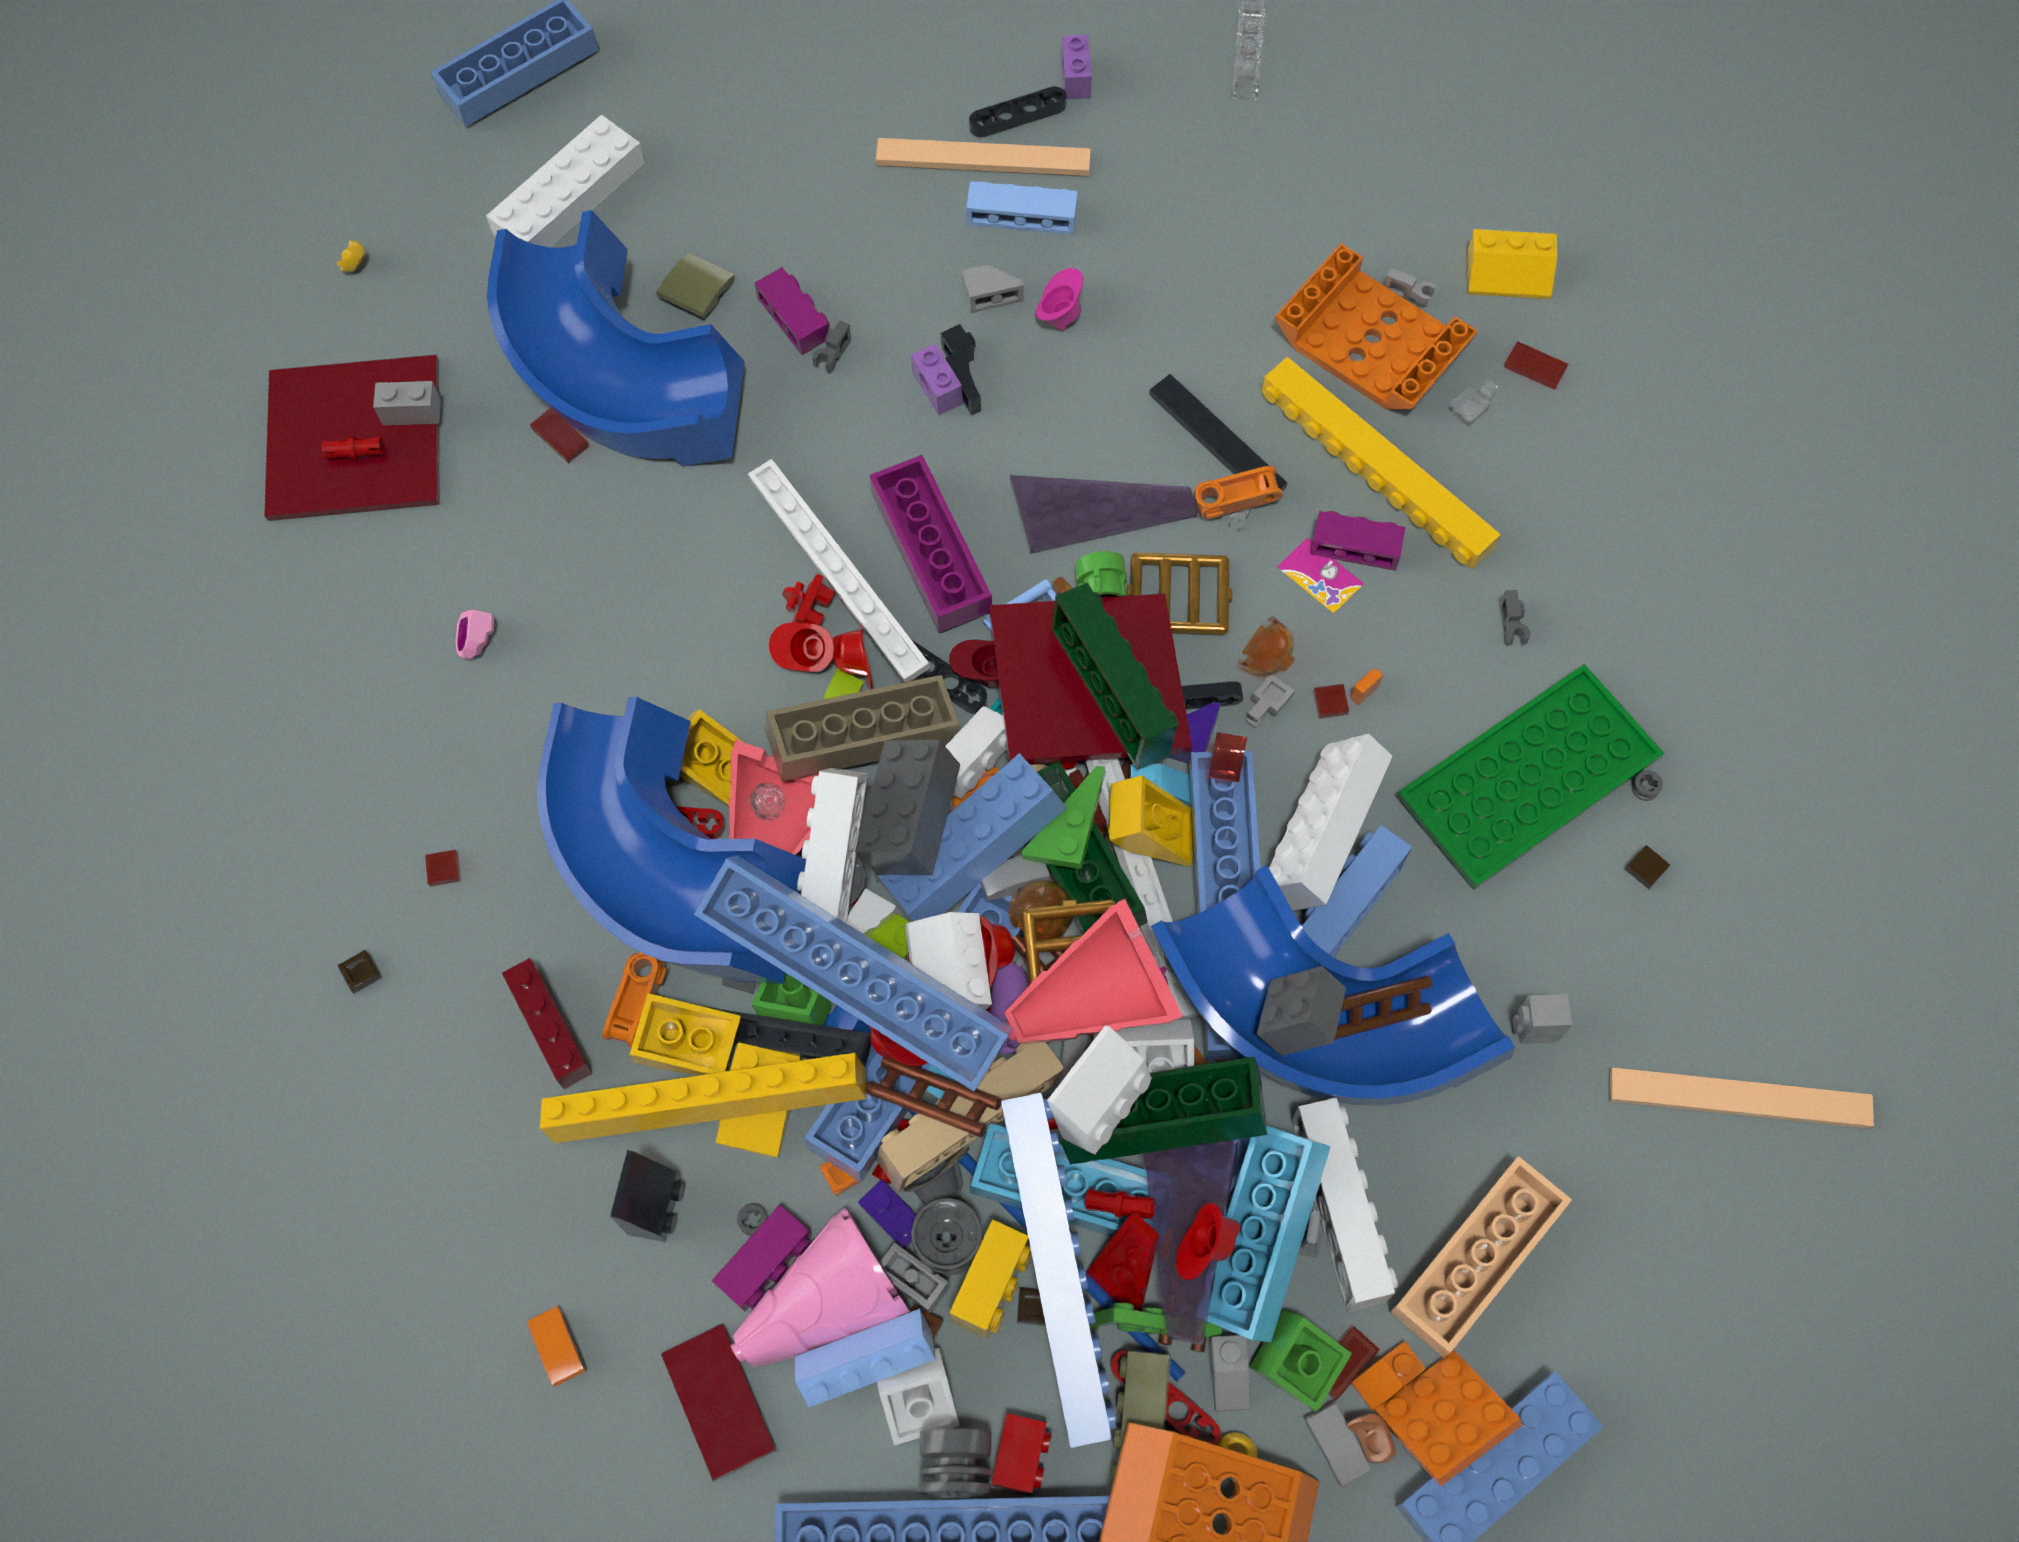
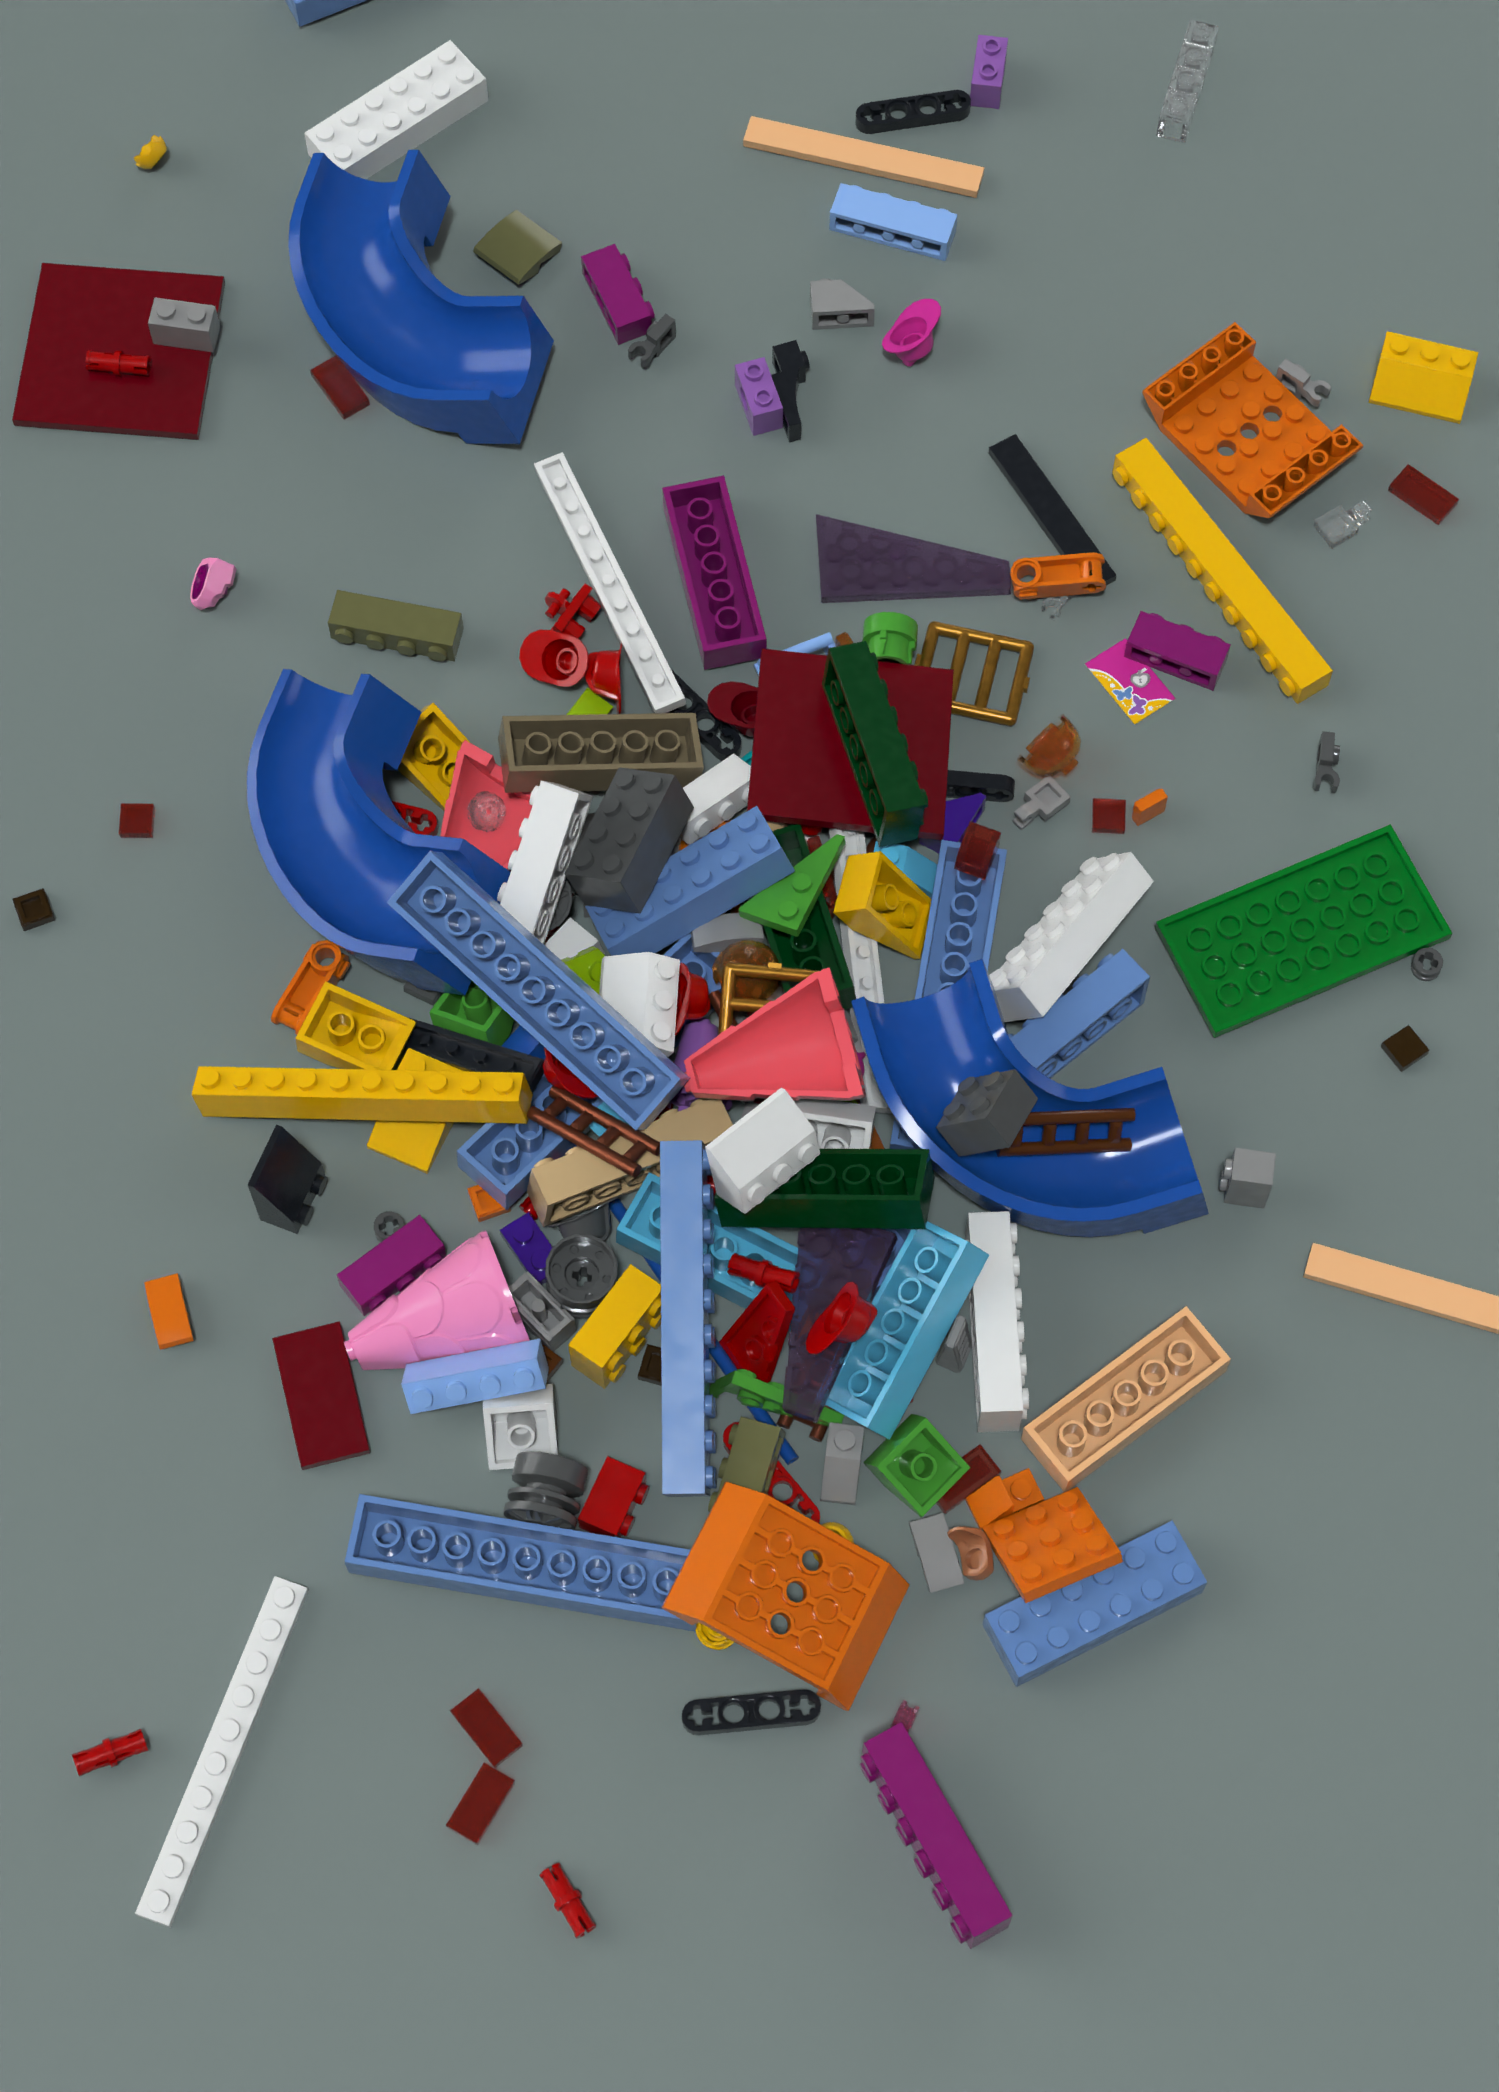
camera: 10 degrees right, 0 degrees up
(546, 1023) = (216, 995): dark red brick -> none
(650, 643) = (395, 626): none -> olive brick

